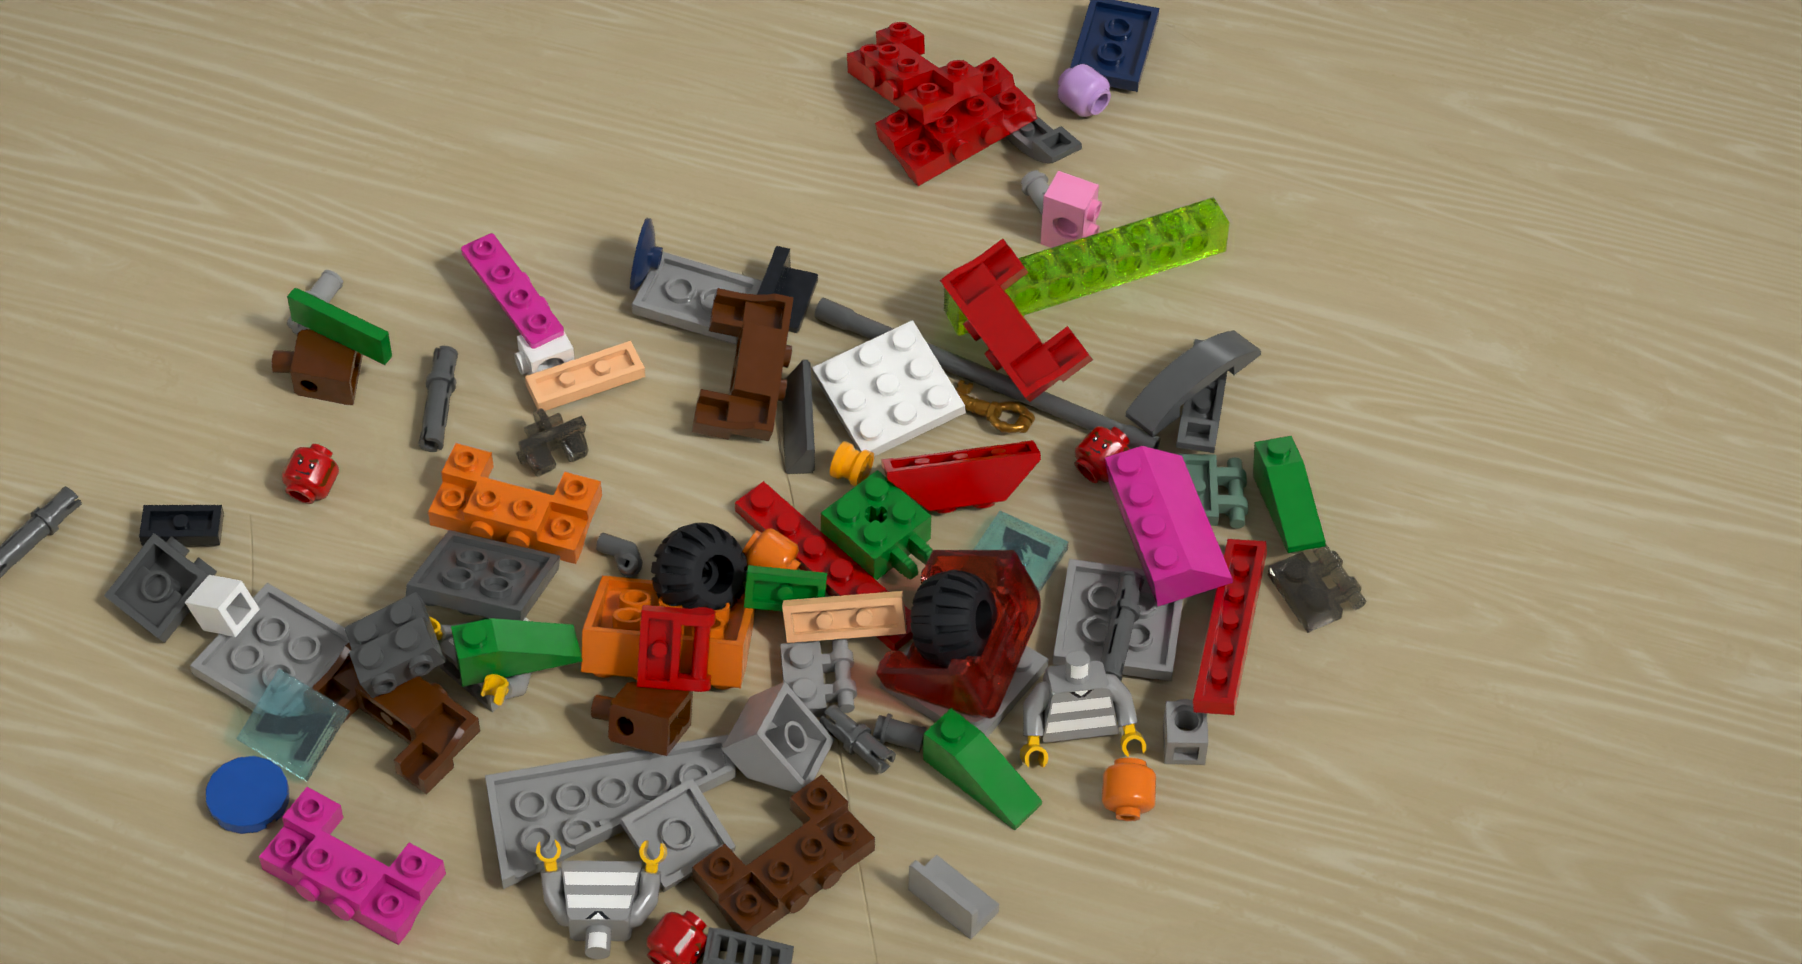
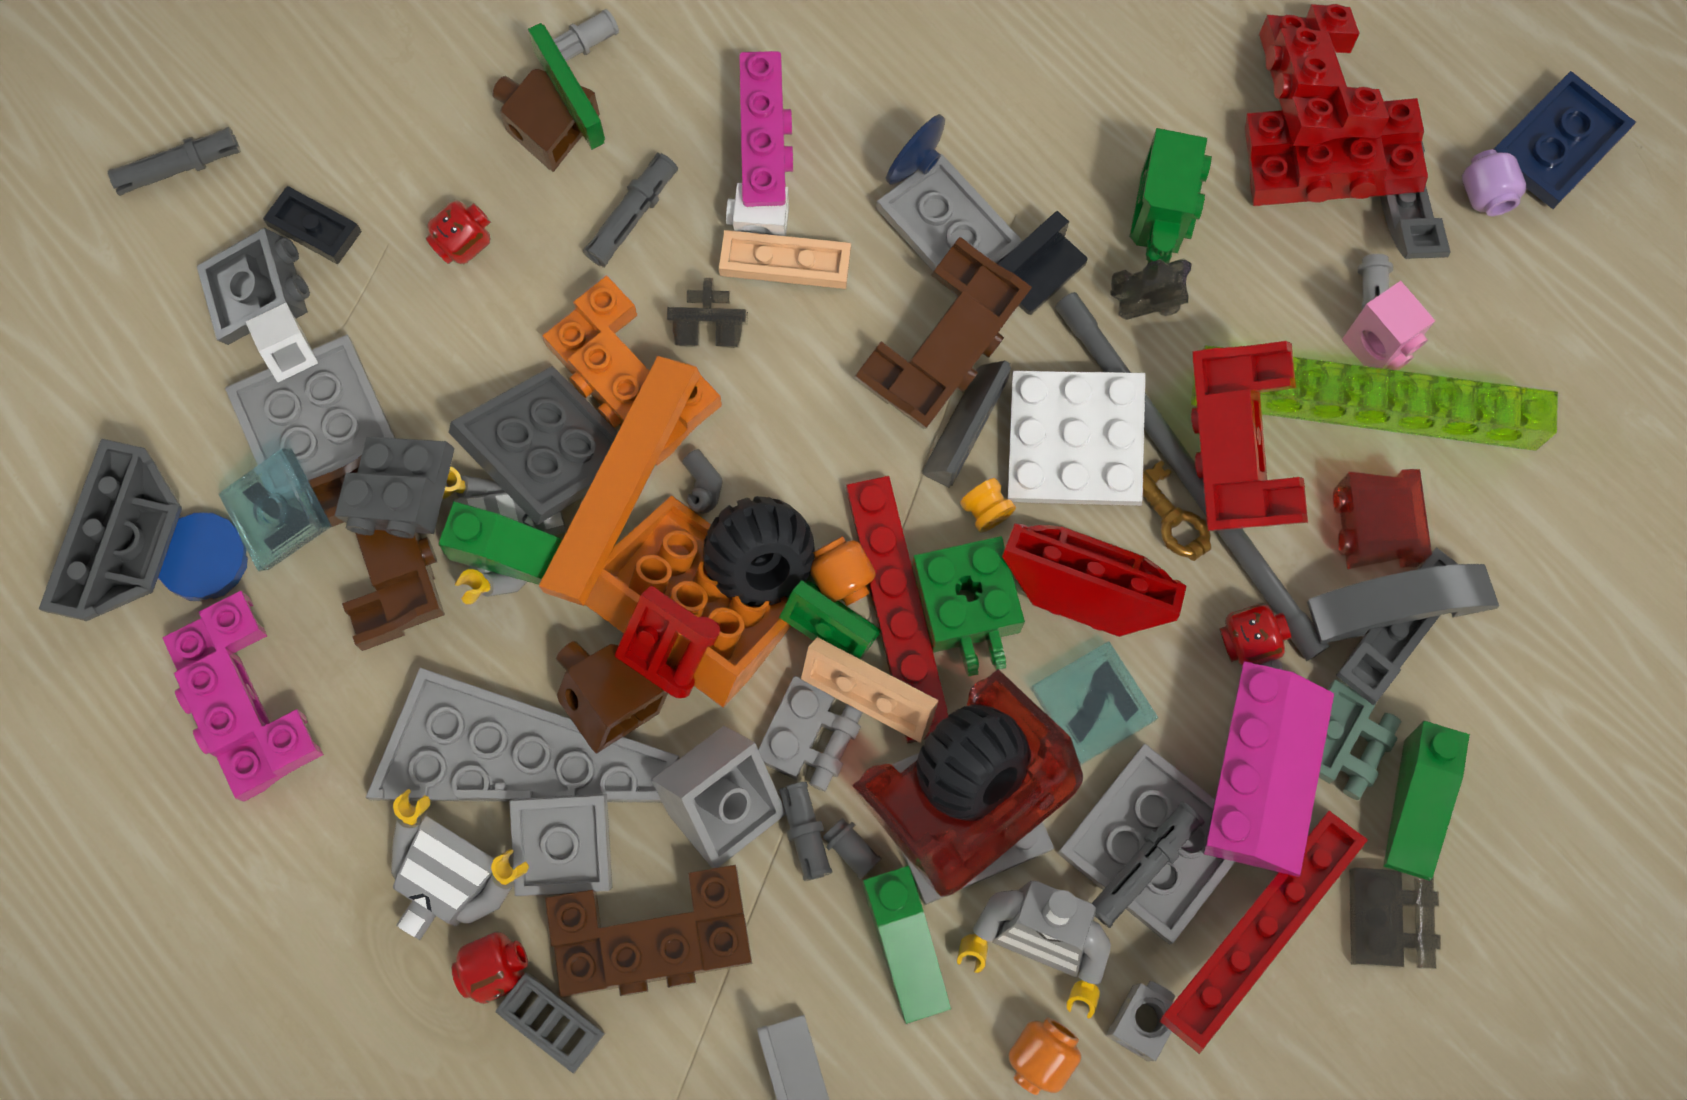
camera: 30 degrees right, 20 degrees up
(176, 795) = (114, 535): none -> dark grey wedge
(566, 562) = (619, 481): none -> orange tile
(852, 198) = (1170, 193): none -> green hinge
(883, 266) = (1154, 289): none -> clear smoke hips
(1143, 338) = (1382, 519): none -> clear red hips

